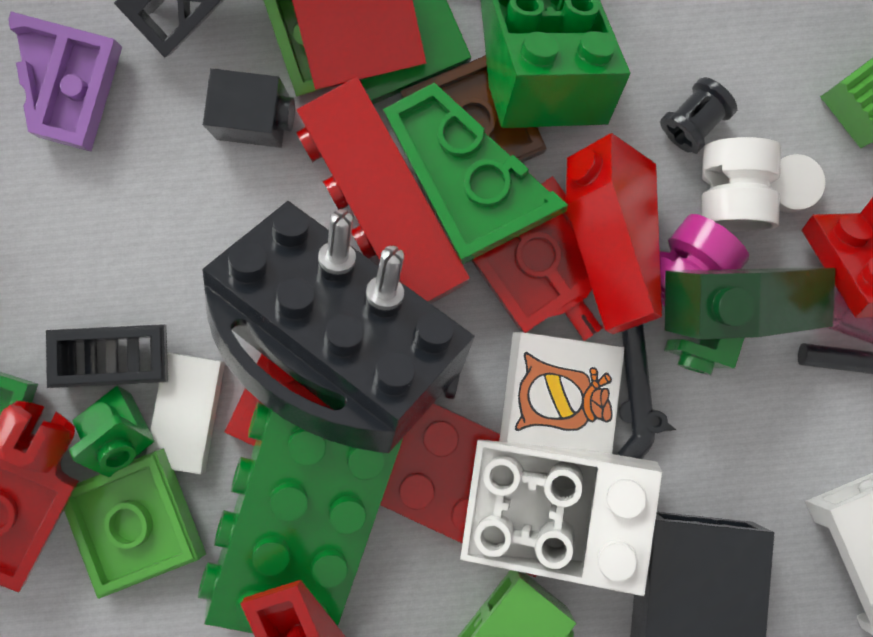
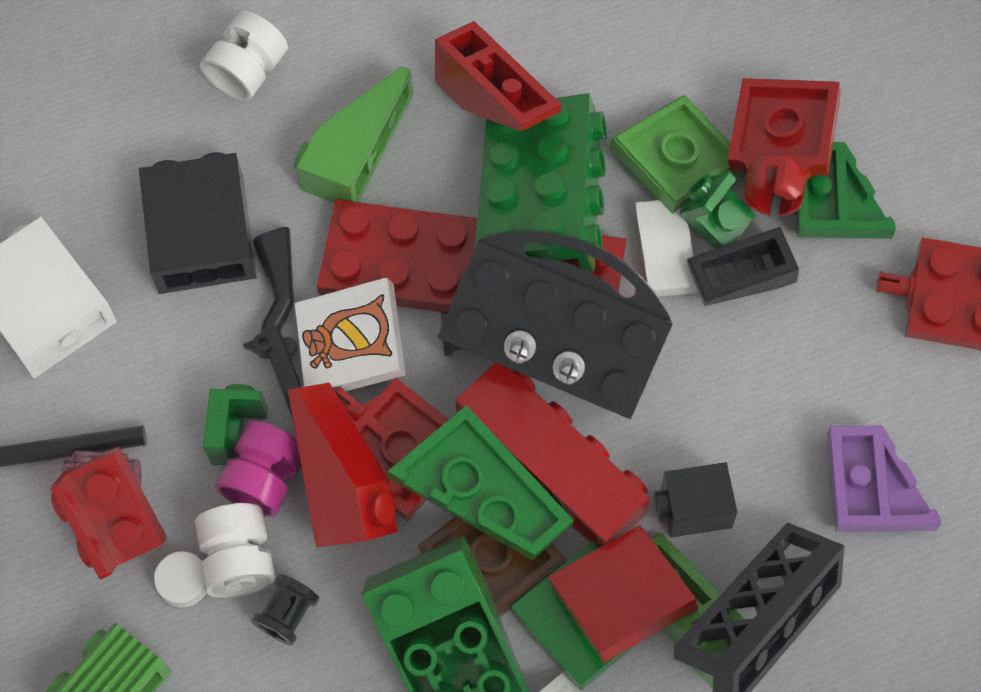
camera: 170 degrees right, 20 degrees down
(563, 514) = (326, 242): white slope -> none
(748, 301) = (211, 431): dark green slope -> none

